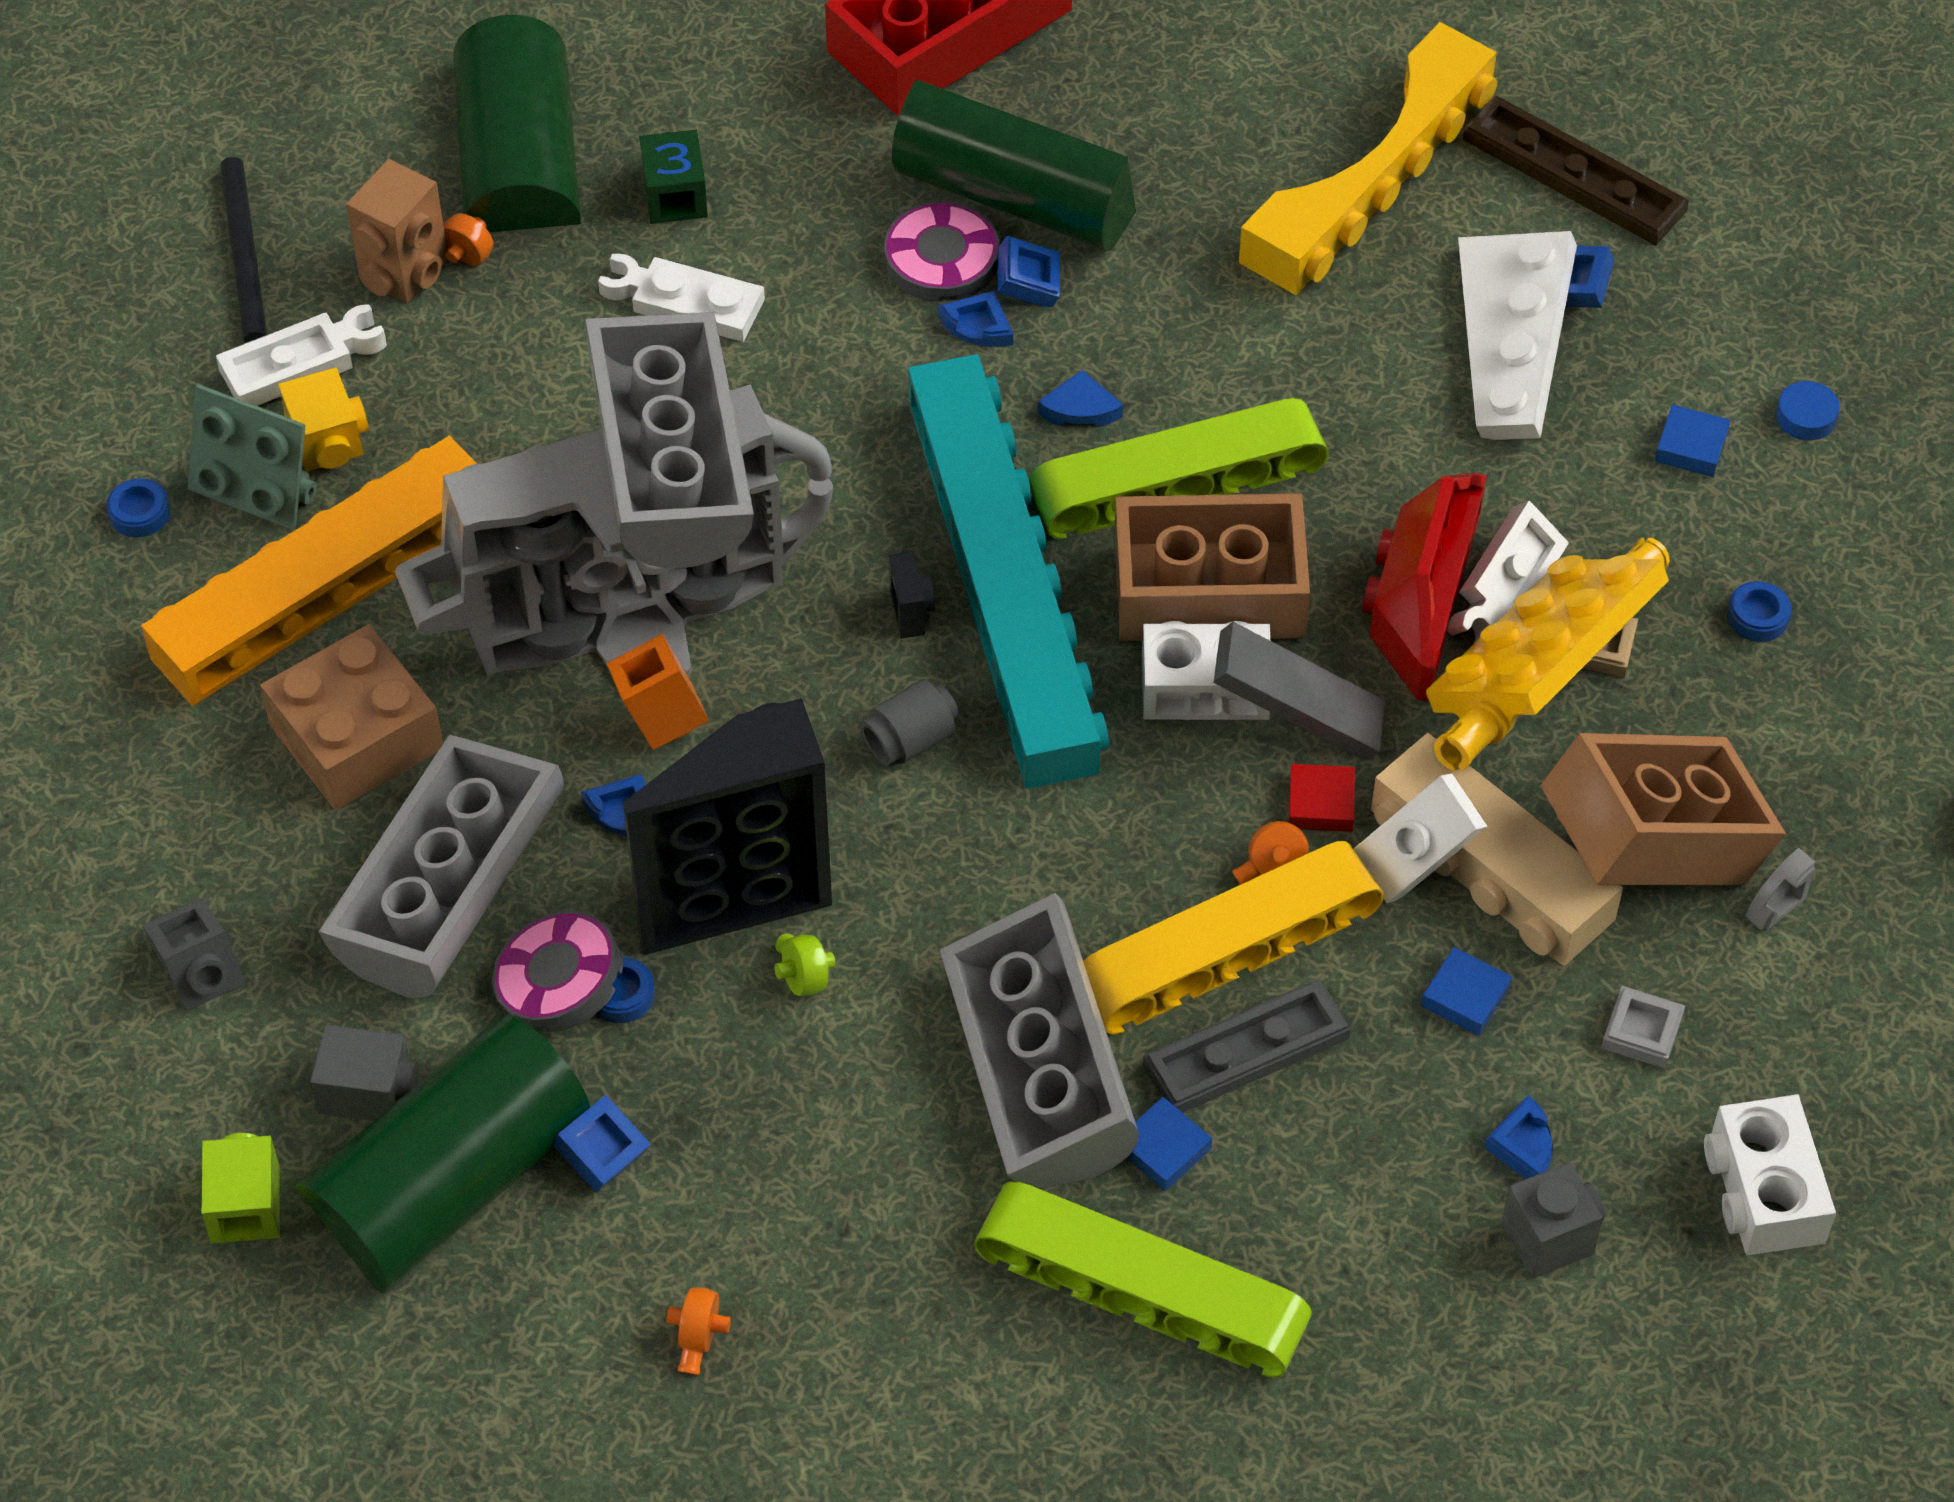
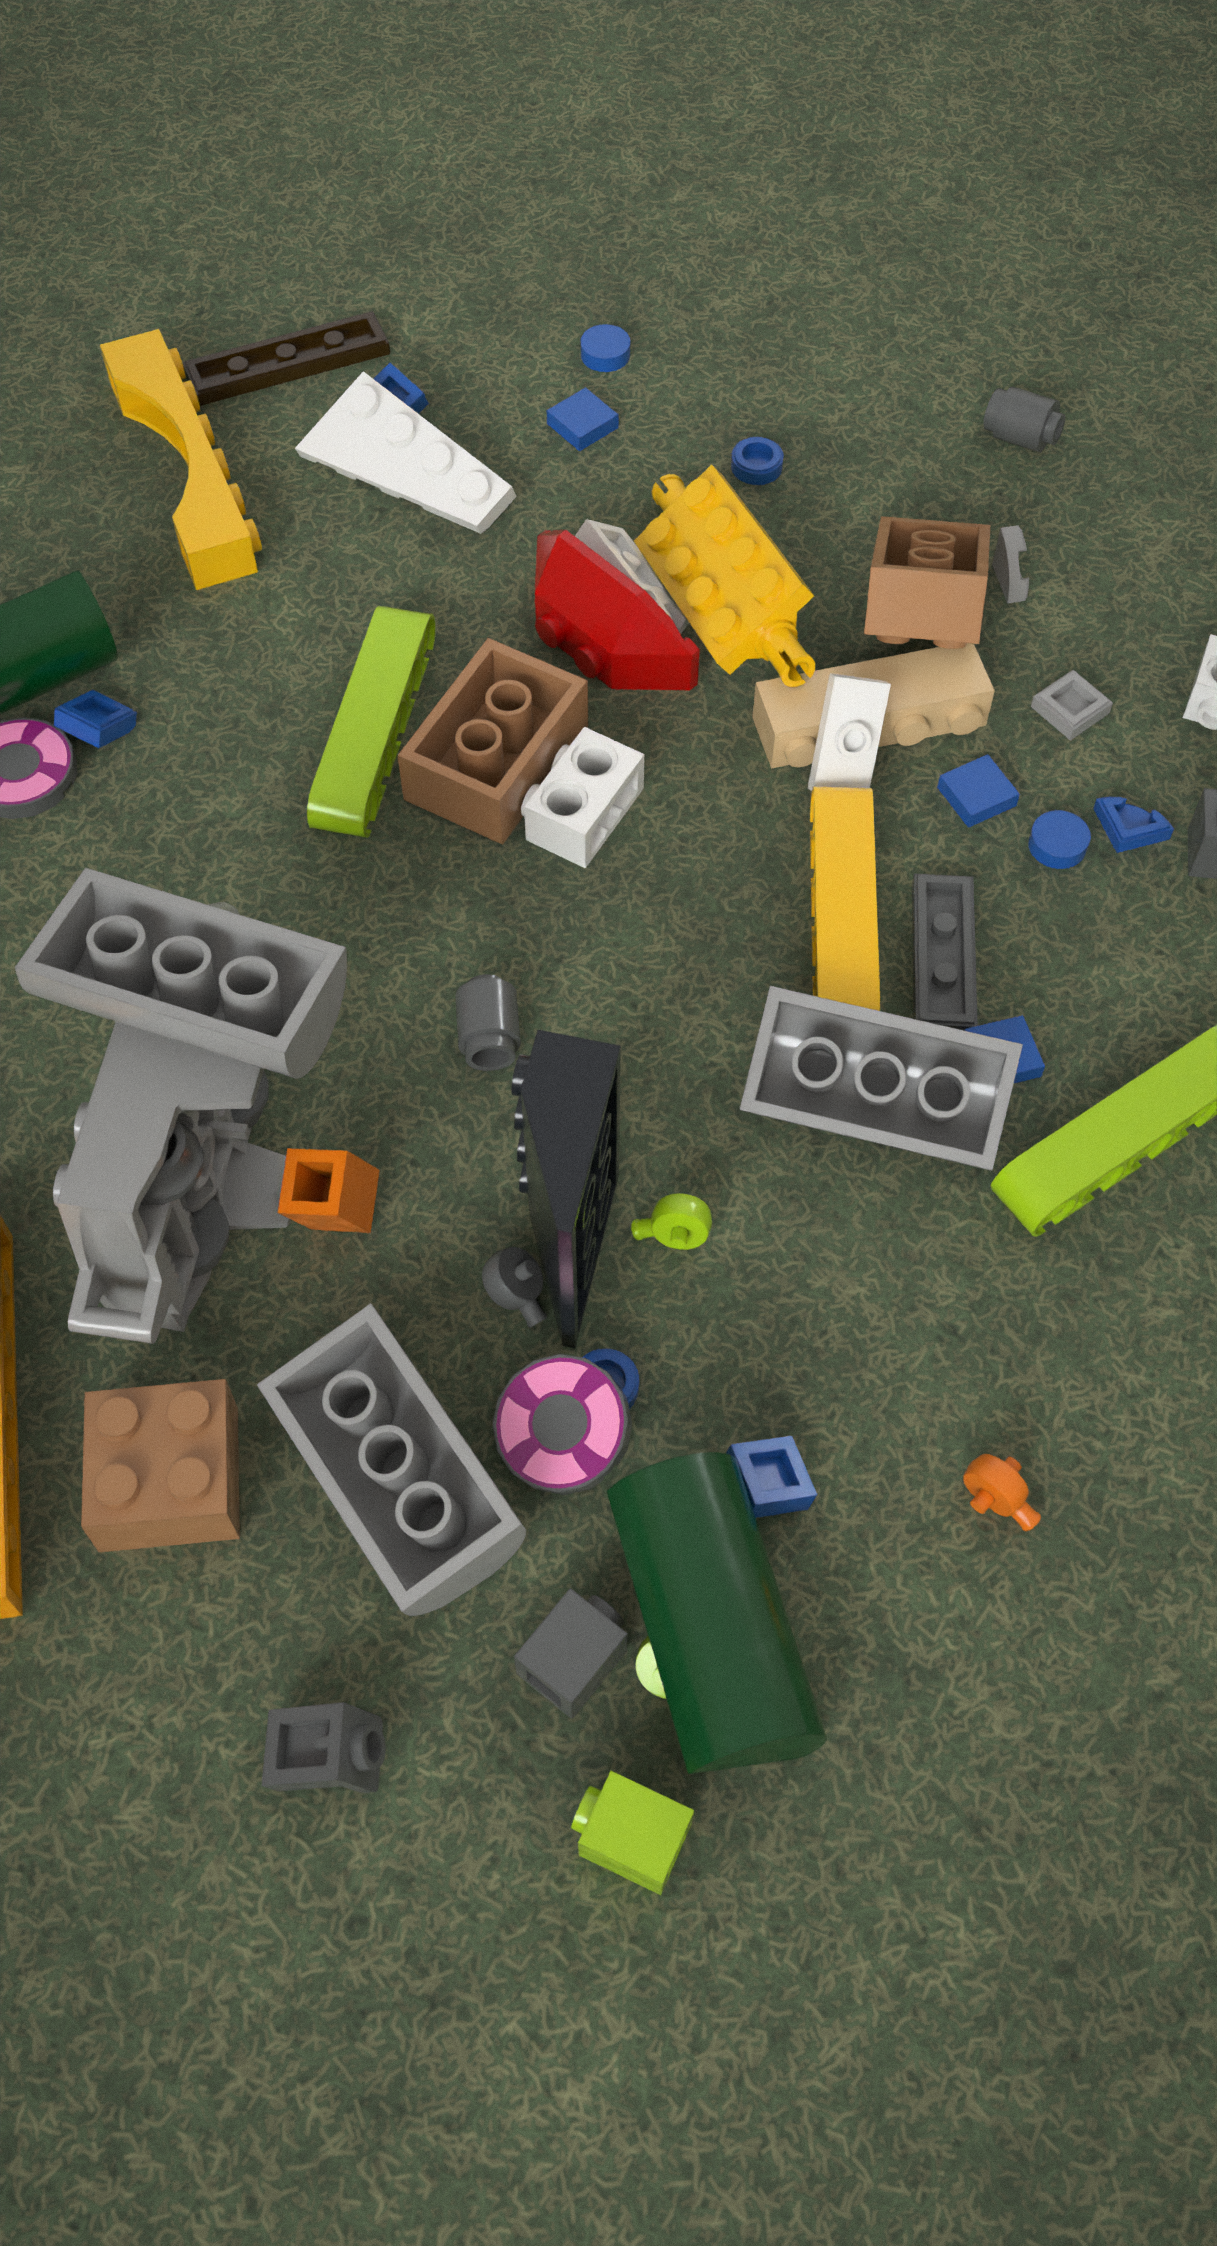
camera: 60 degrees left, 5 degrees up
(607, 802) = (413, 1285): blue tile -> none
(910, 594) = (367, 958): black plate -> none
(977, 318) = (110, 776): blue tile -> none
(1005, 573) = (381, 879): teal brick -> none
(1080, 402) = (252, 752): blue tile -> none
(1271, 848) = (782, 842): orange piece -> none
(1299, 691) = (659, 741): dark grey tile -> none
(1322, 797) = (744, 789): red tile -> none
(1456, 1086) = (1059, 839): none -> blue tile

